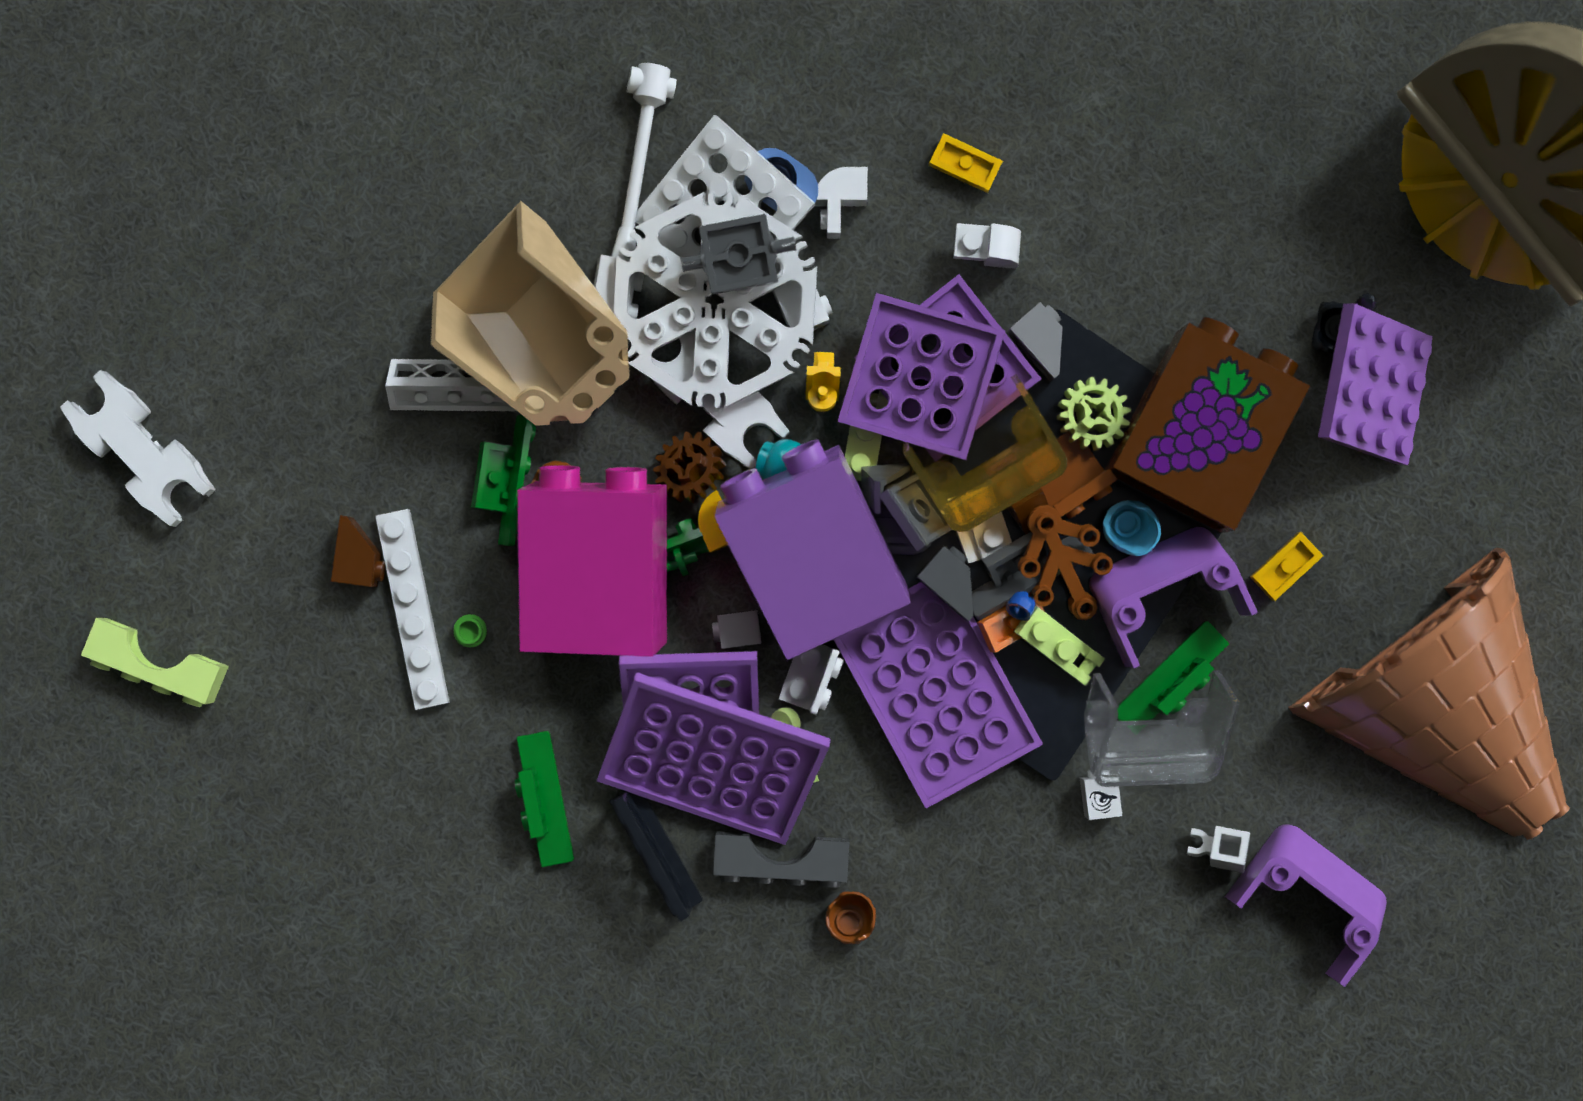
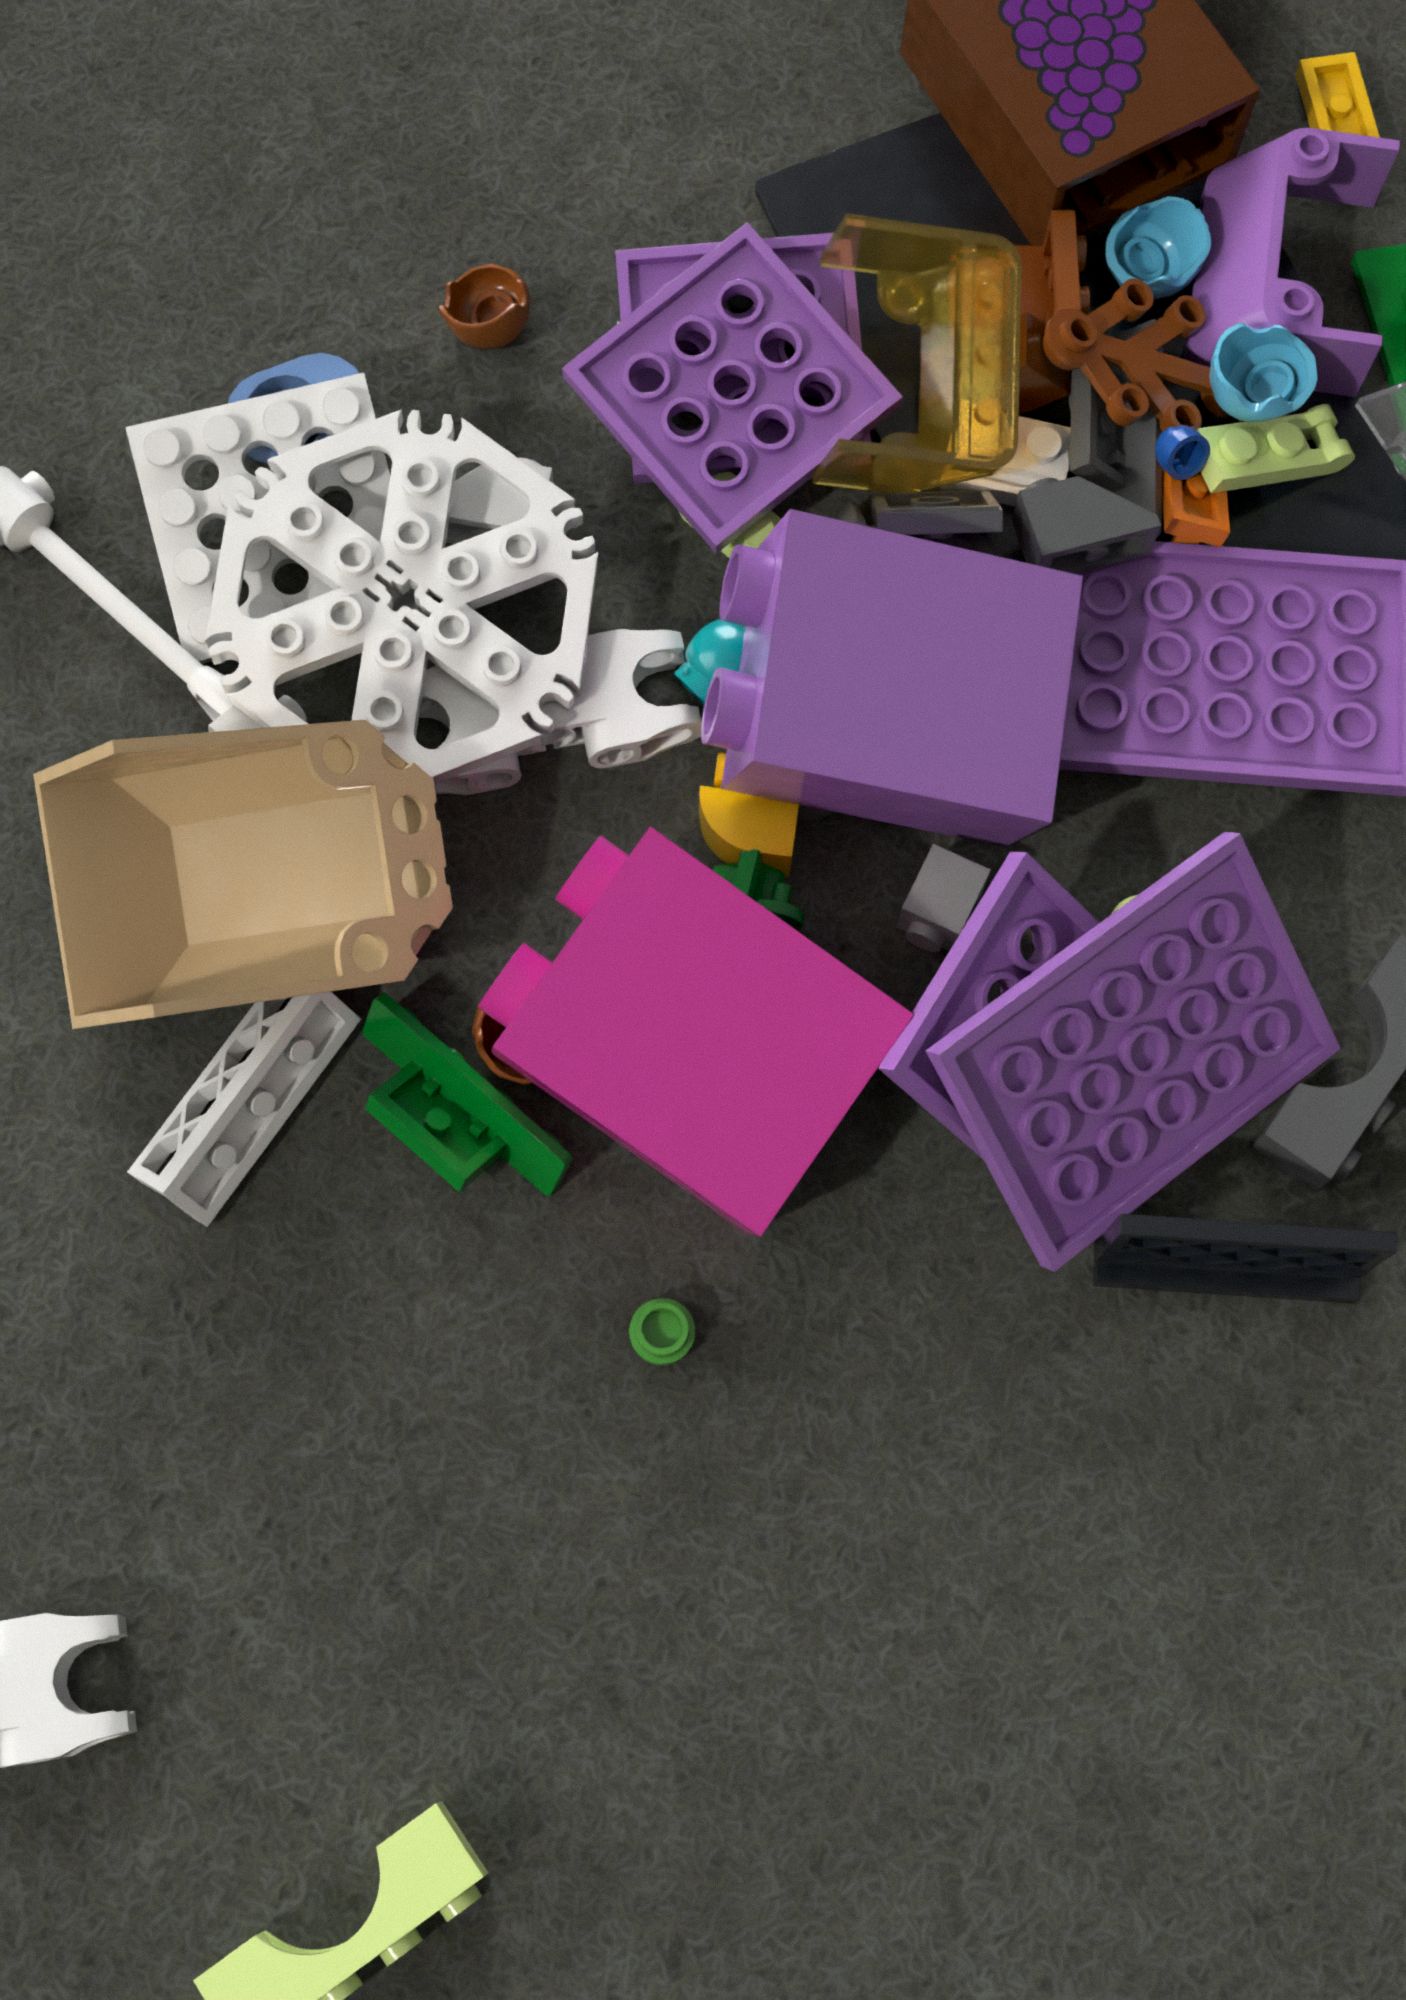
camera: 60 degrees left, 15 degrees down
(356, 556) = (411, 1437): reddish brown slope -> none
(412, 609) = (562, 1406): white plate -> none
(543, 799) = (1029, 1388): green bracket -> none
(689, 467) = (635, 780): reddish brown gear -> none
(738, 254) = (362, 500): dark grey plate -> none
(809, 678) = (1099, 831): white bracket -> none
(823, 382) = (639, 533): yellow hips -> none
(840, 188) = (376, 339): white brick -> none
(907, 234) = (494, 296): none -> dark orange hair
(965, 163) = (457, 171): yellow plate -> none
(993, 244) = (600, 198): white brick -> none
(1040, 339) = (788, 201): light grey slope -> none
(1083, 407) = (951, 194): yellowish green gear -> none
(1083, 621) = (1261, 372): none -> medium azure hair

